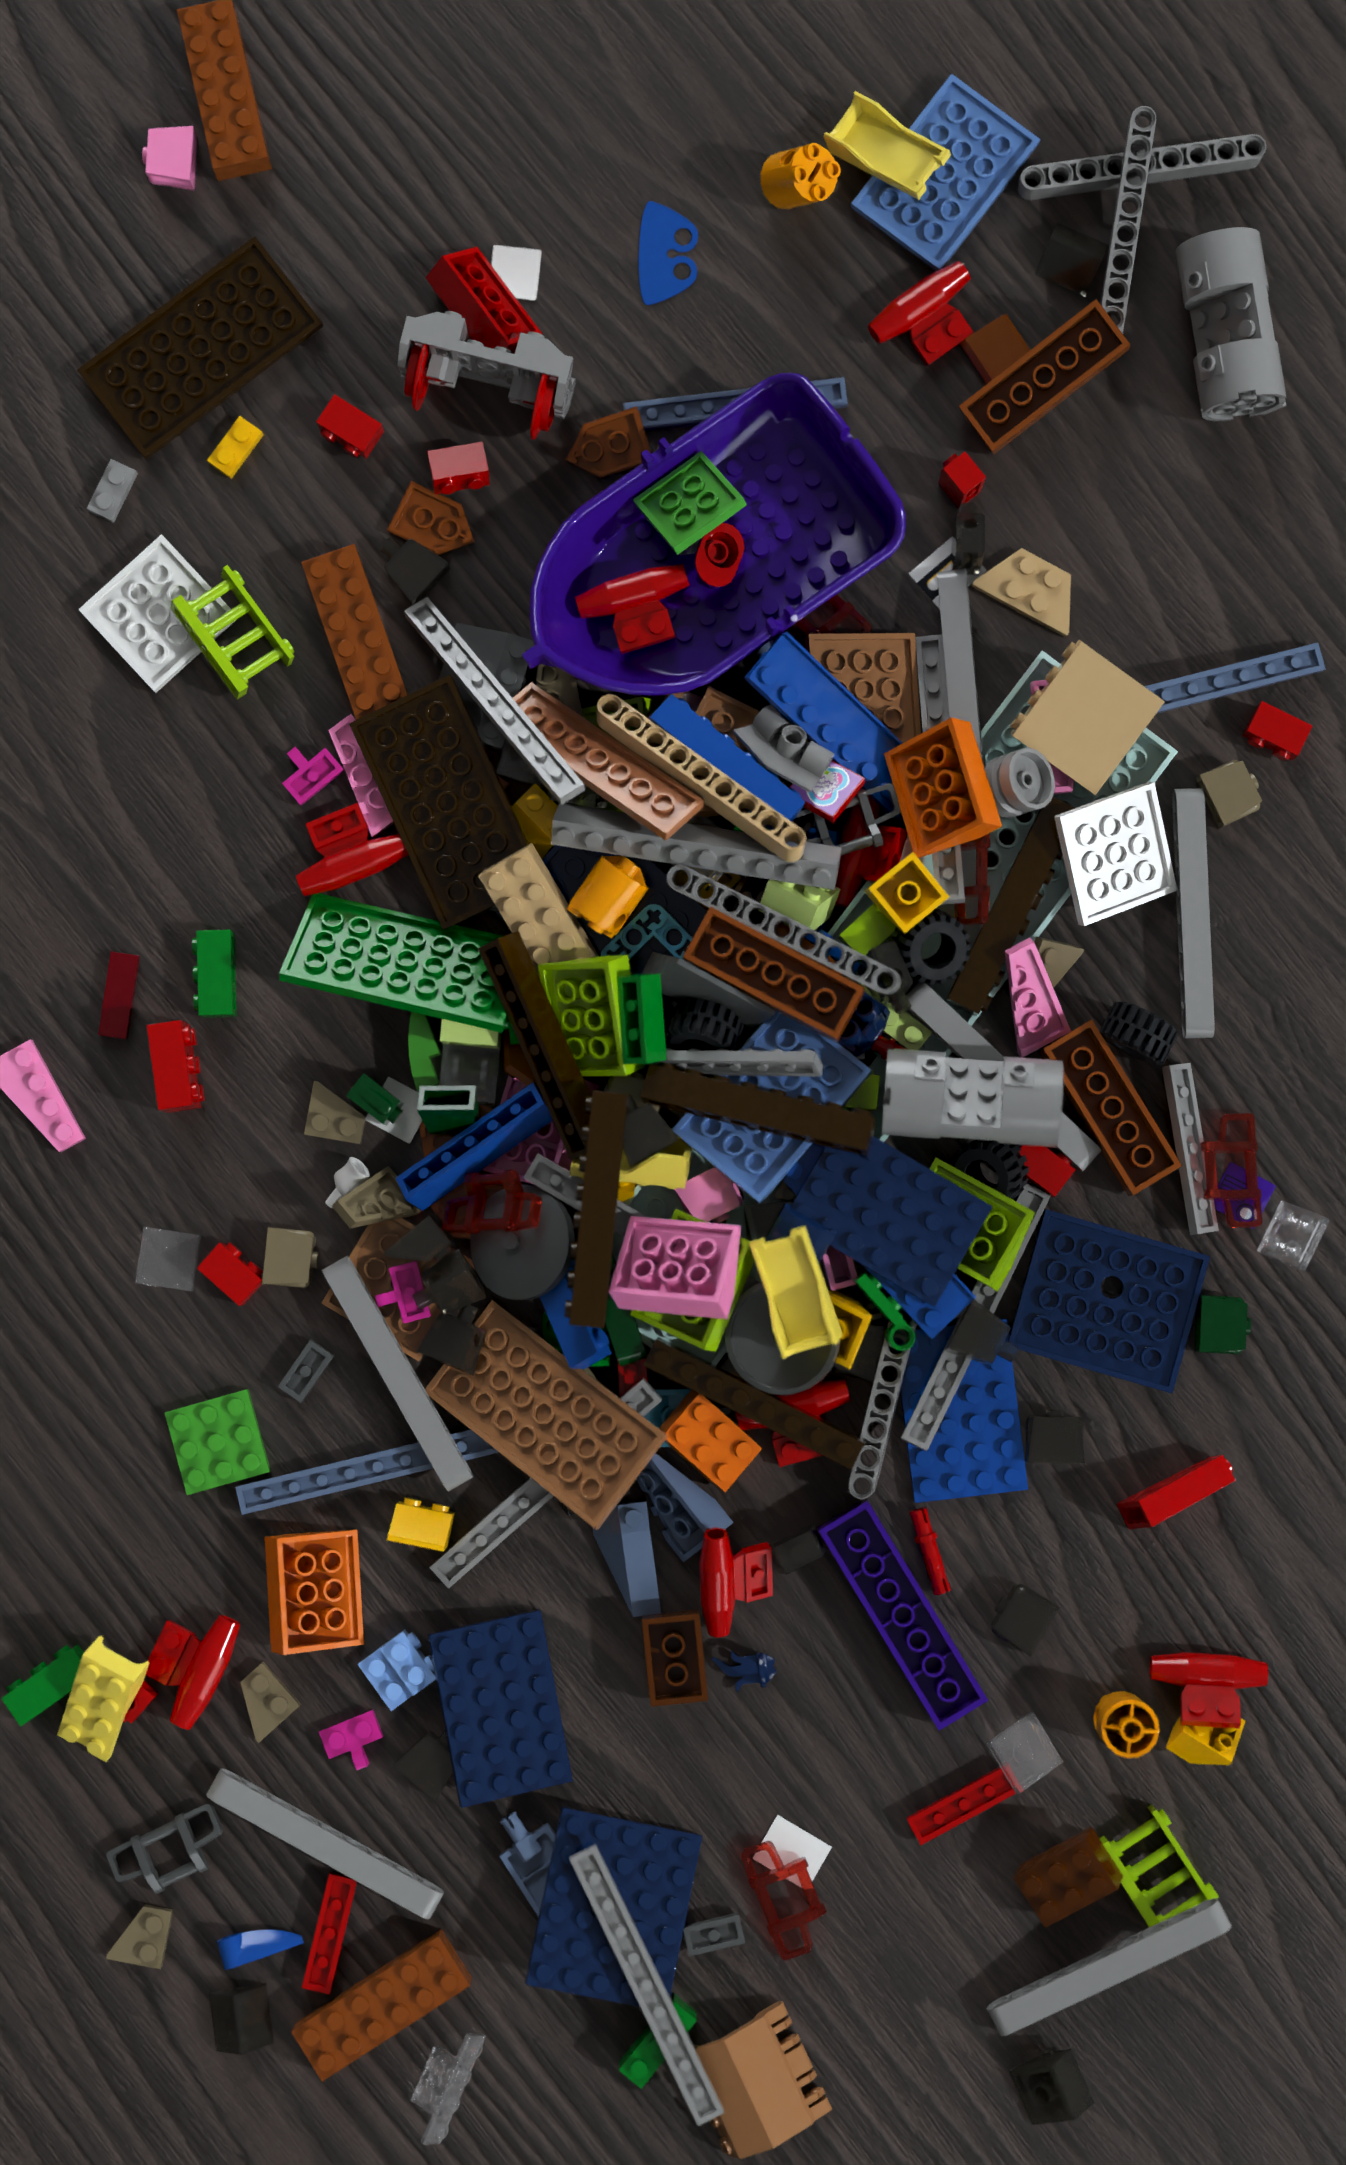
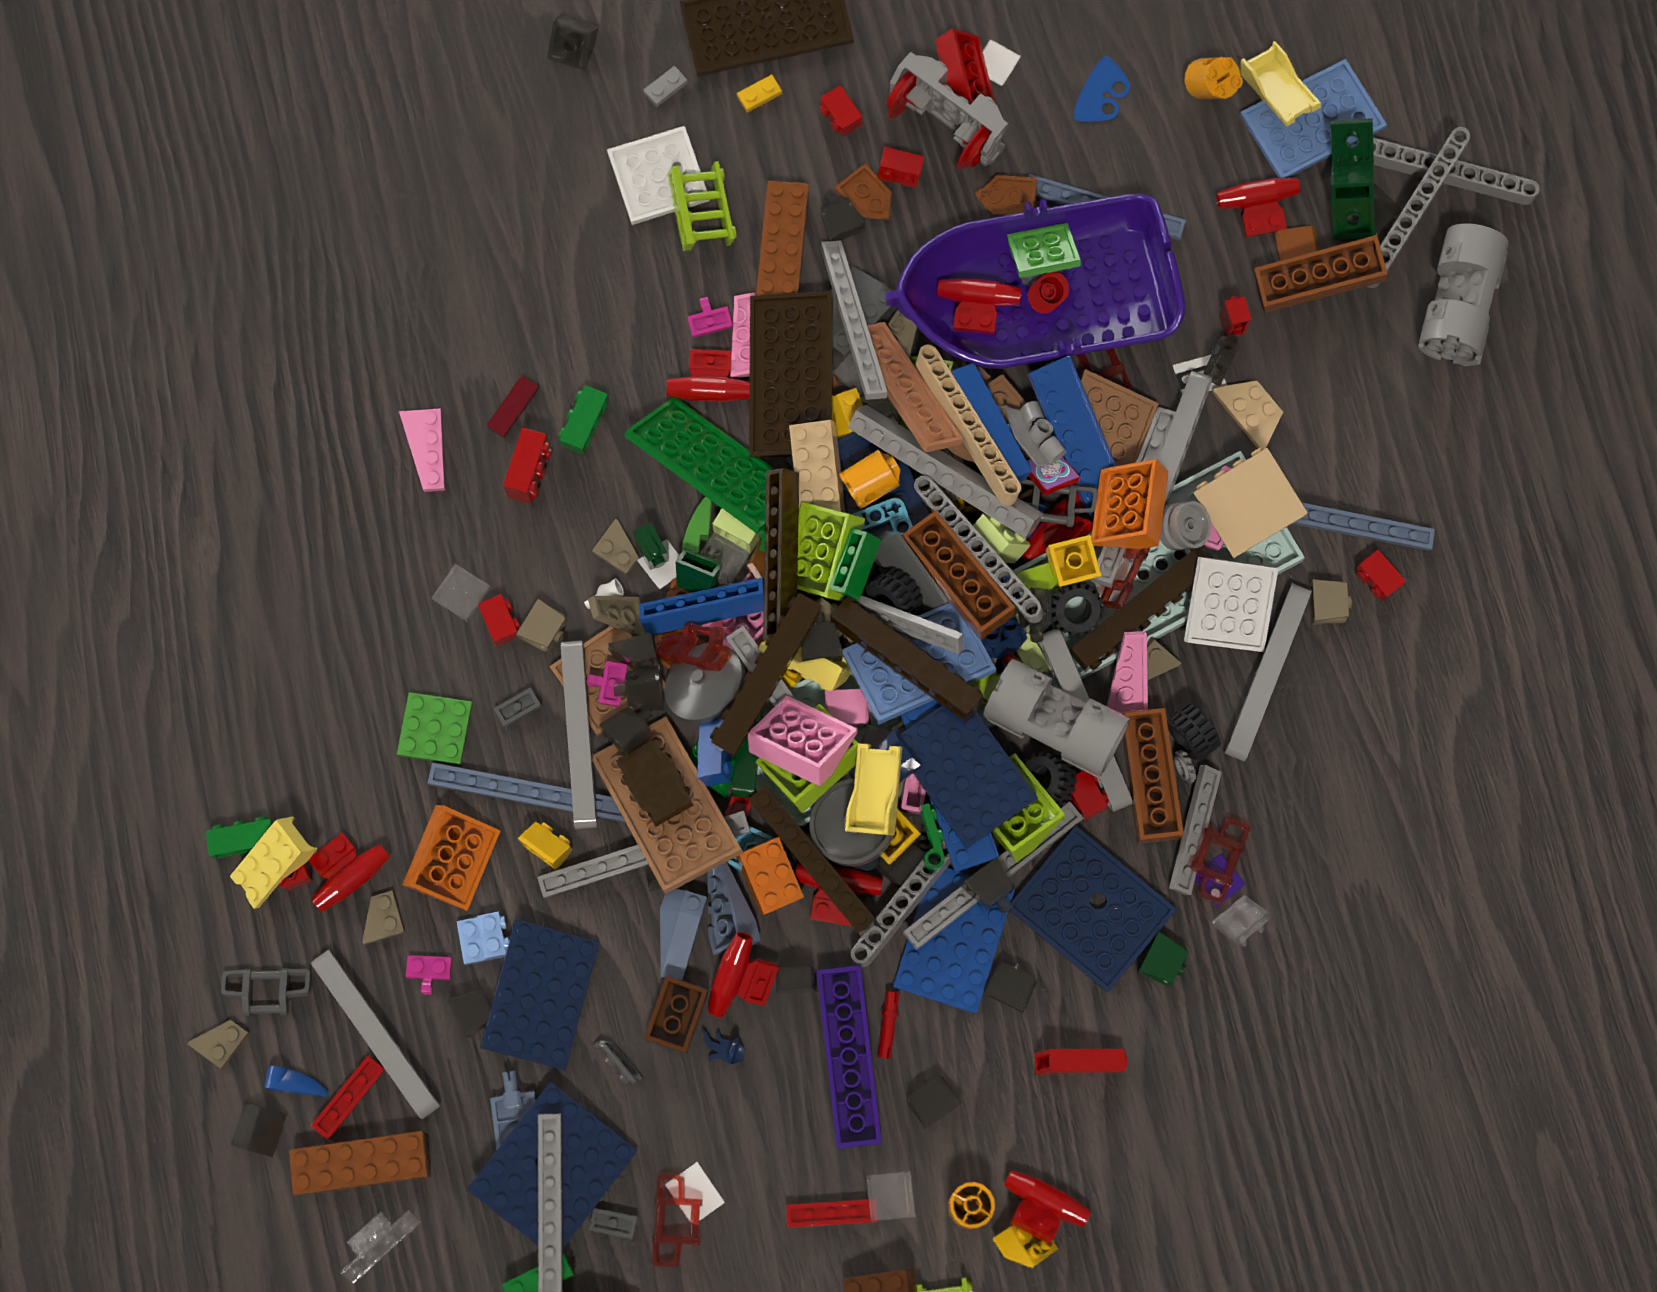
camera: 25 degrees right, 10 degrees down
(520, 1396) = (654, 783): none -> dark brown piece
(623, 1742) = (615, 1058): none -> dark grey piece
(1031, 233) = (1352, 179): none -> dark green bracket
(1145, 1078) = (1184, 766): none -> light grey gear

